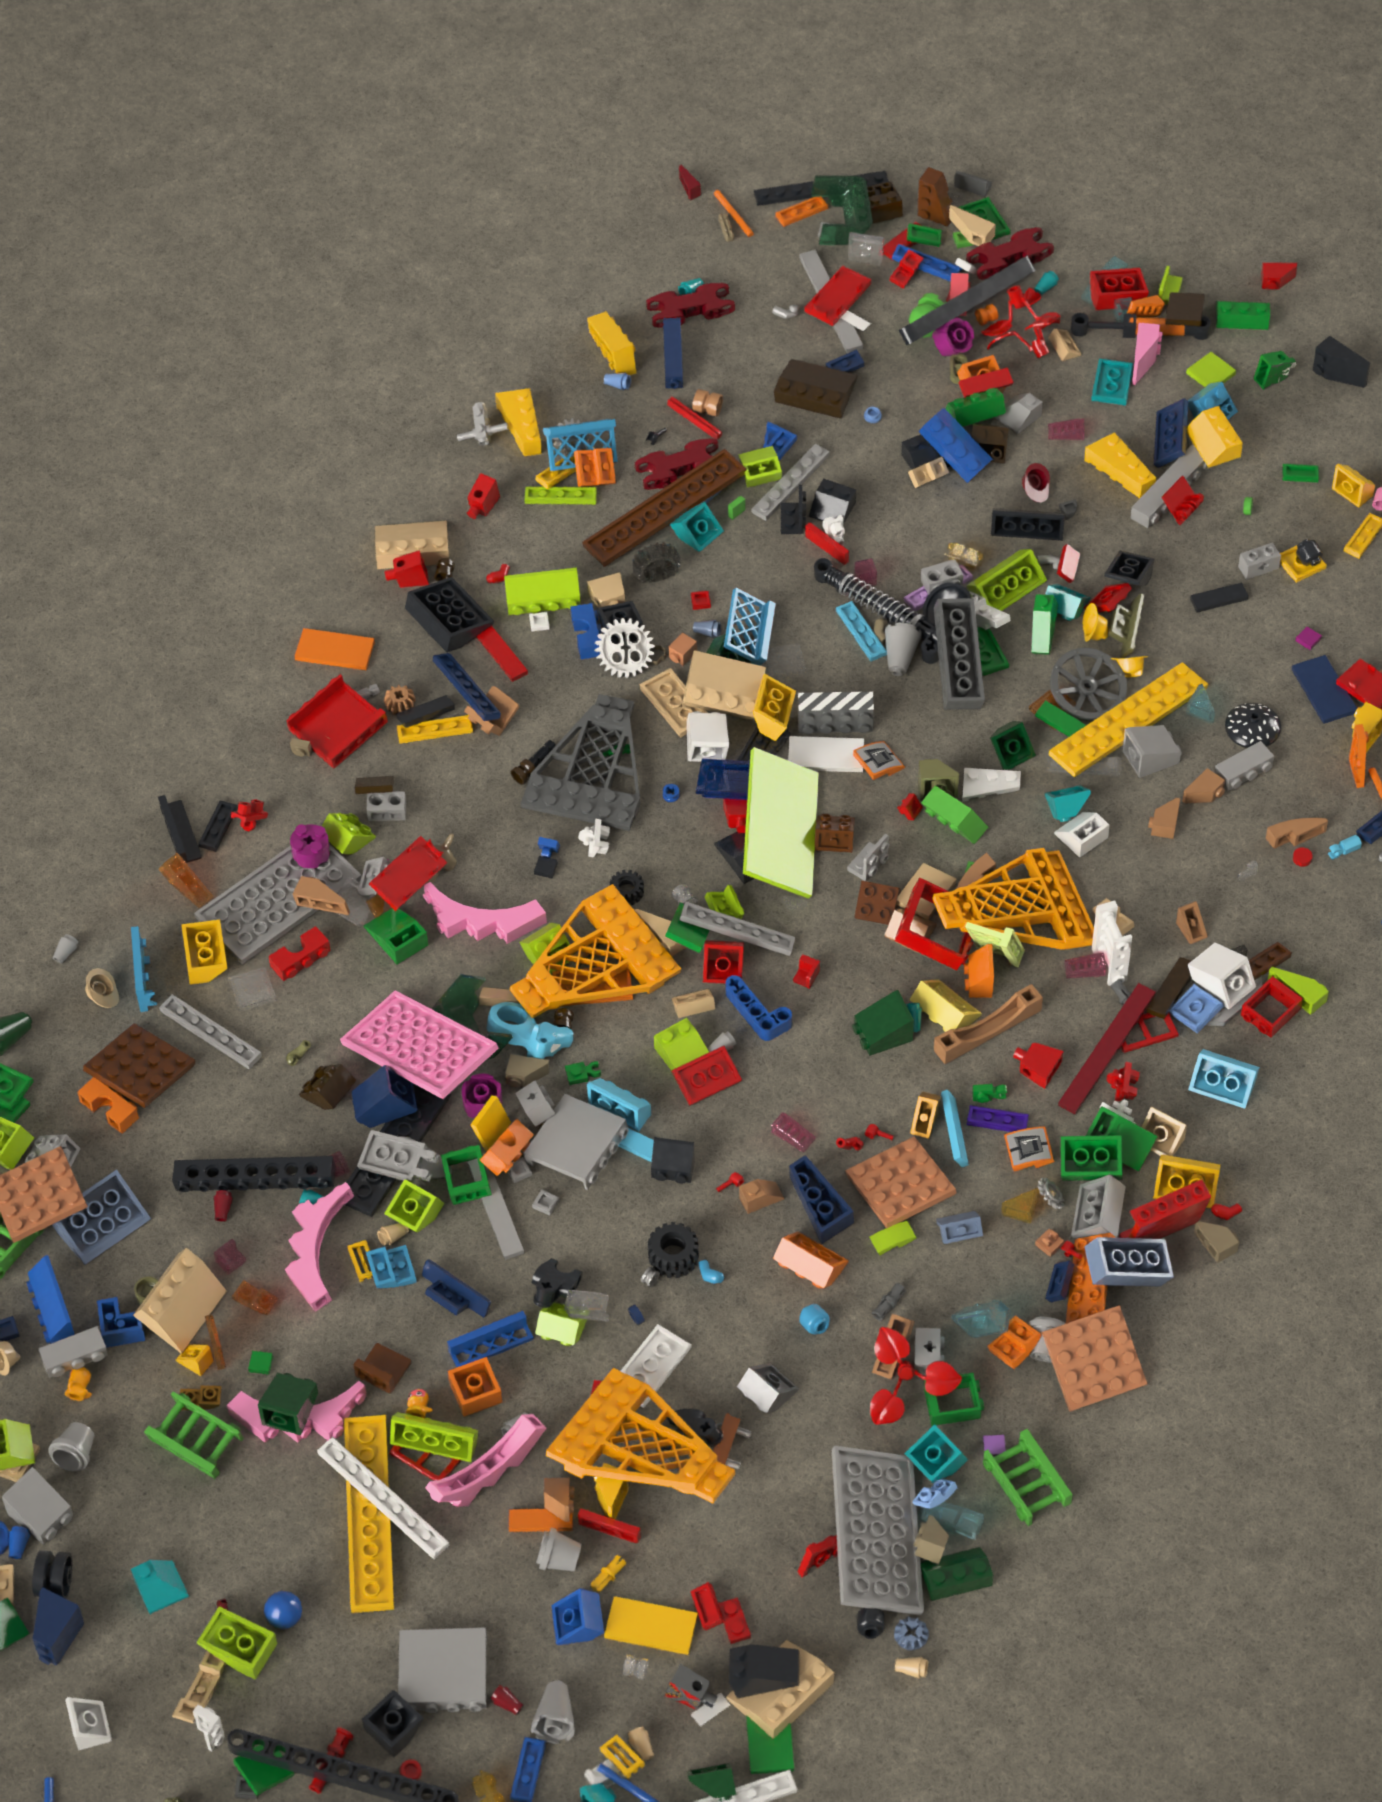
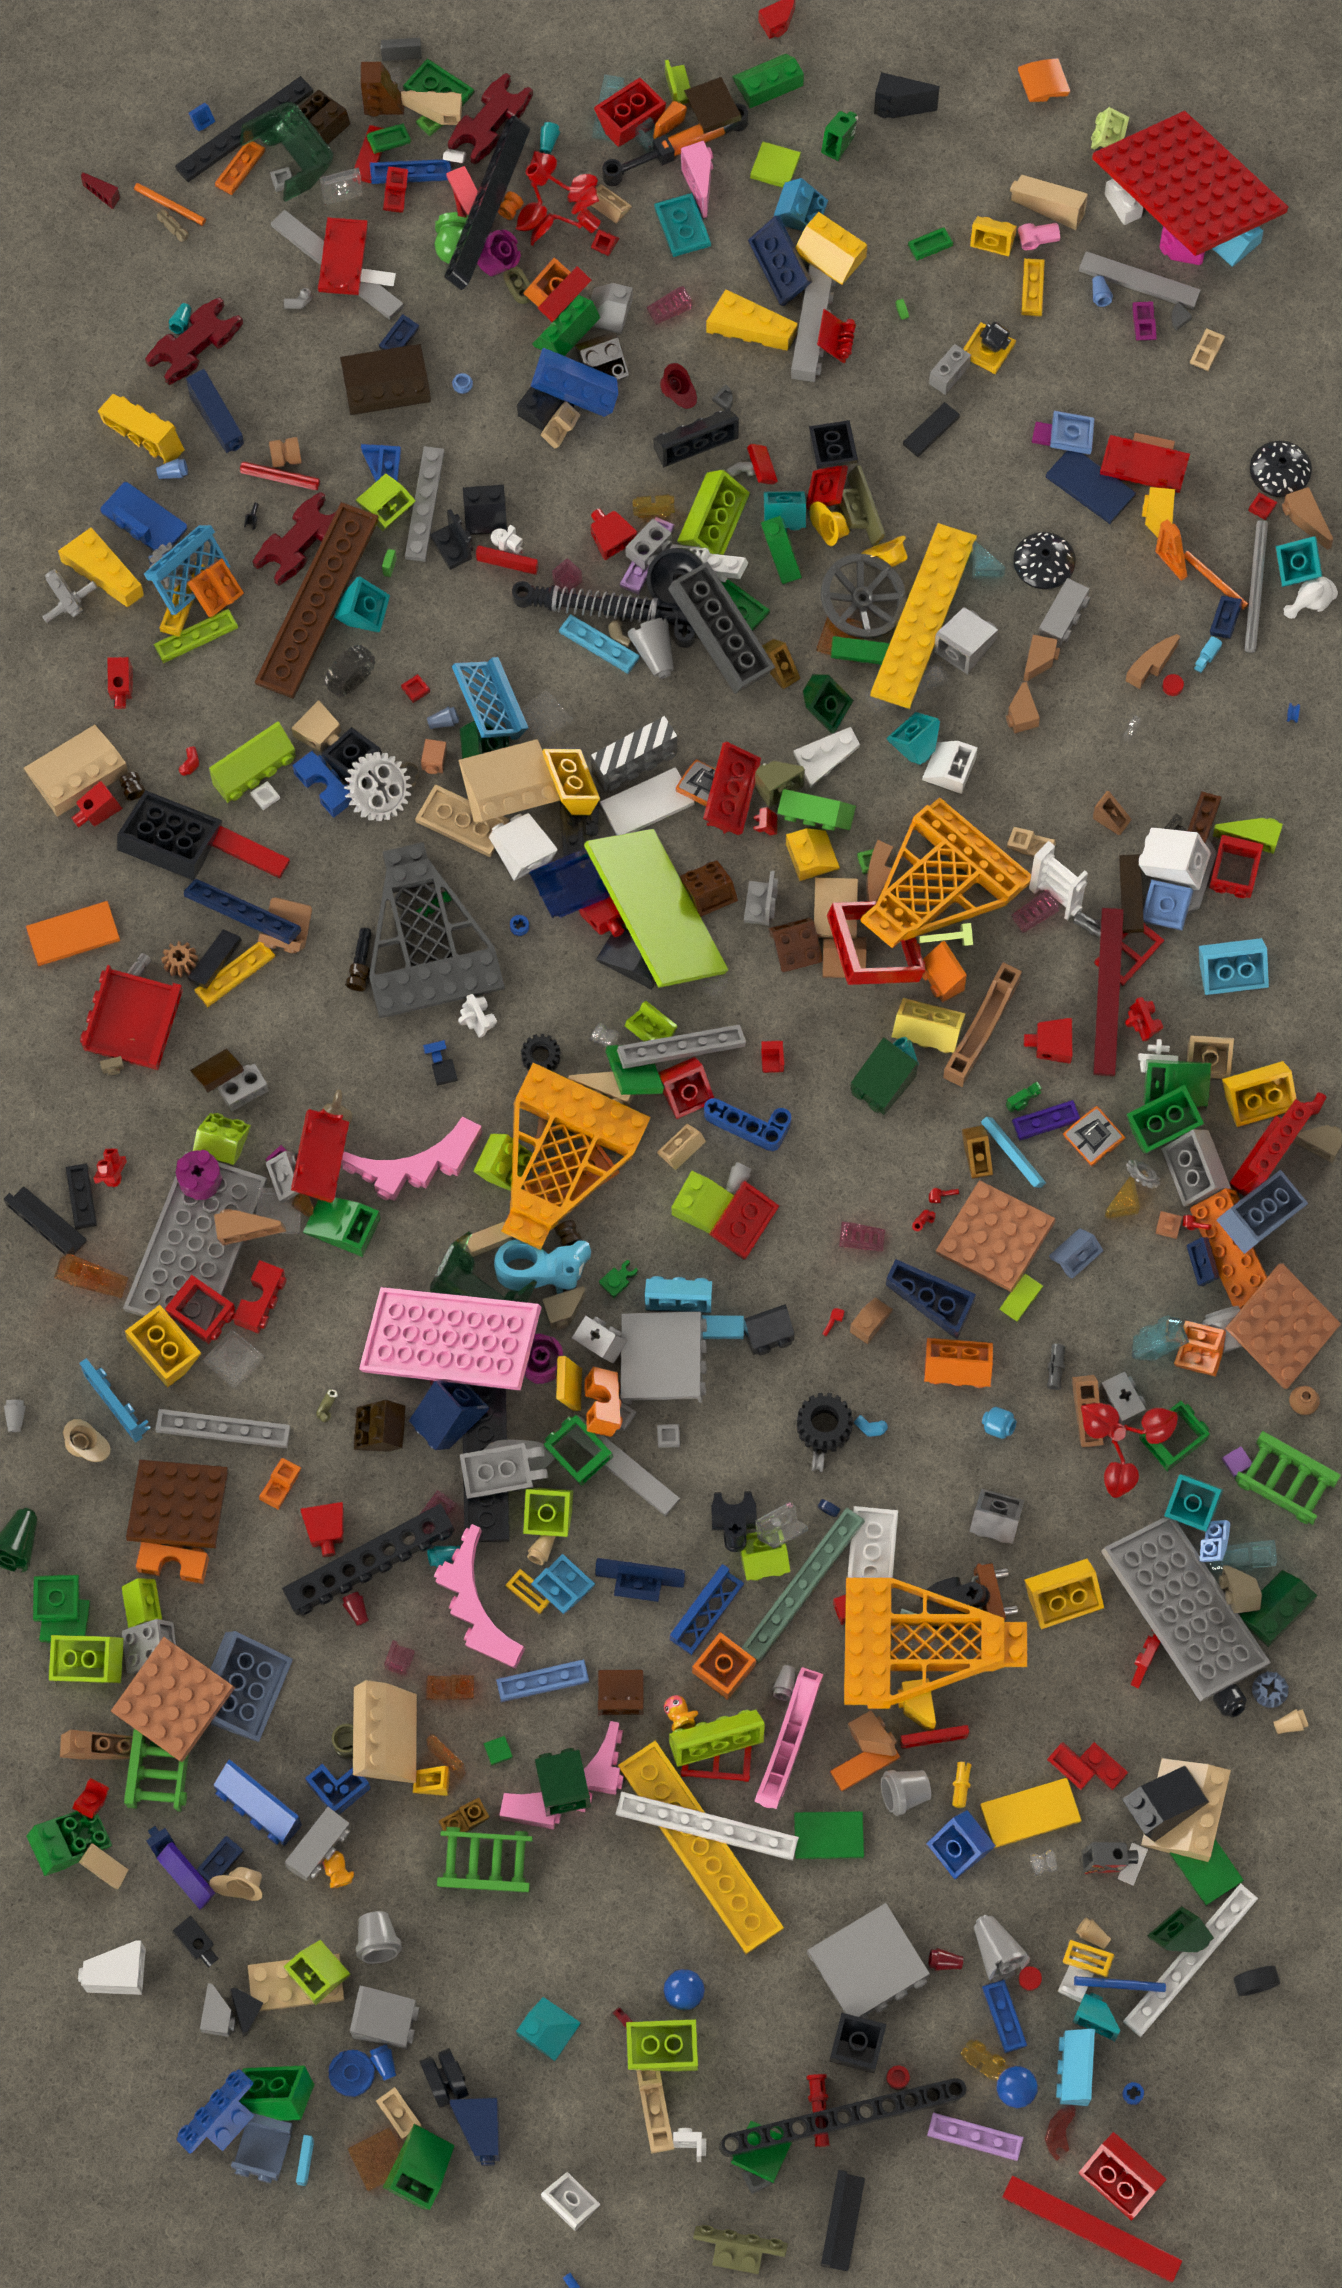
camera: 30 degrees left, 15 degrees up
(68, 1120) = (141, 1601): none -> lime panel
(229, 1090) = (280, 1483): none -> orange slope
(238, 1135) = (324, 1526): none -> red torso
(241, 924) = (183, 1297): none -> red window
(329, 1329) = (542, 1680): none -> medium blue tile
(477, 1558) = (829, 1835): none -> green tile
(567, 1752) = (1030, 1978): none -> red tile
(573, 399) = (142, 517): none -> blue bracket
(578, 1361) = (803, 1584): none -> sand green tile
(785, 1473) = (1064, 1593): none -> yellow slope
(794, 166) = (201, 117): none -> blue tile
(894, 770) = (731, 789): none -> red piece
(918, 556) = (611, 533): none -> red torso
(931, 843) = (811, 853): none -> yellow slope
(993, 704) = (785, 669): none -> pearl gold slope
(1044, 368) = (604, 242): none -> red slope
(1080, 1427) = (1301, 1404): none -> medium nougat cone
(1331, 645) = (1072, 432): none -> medium blue tile

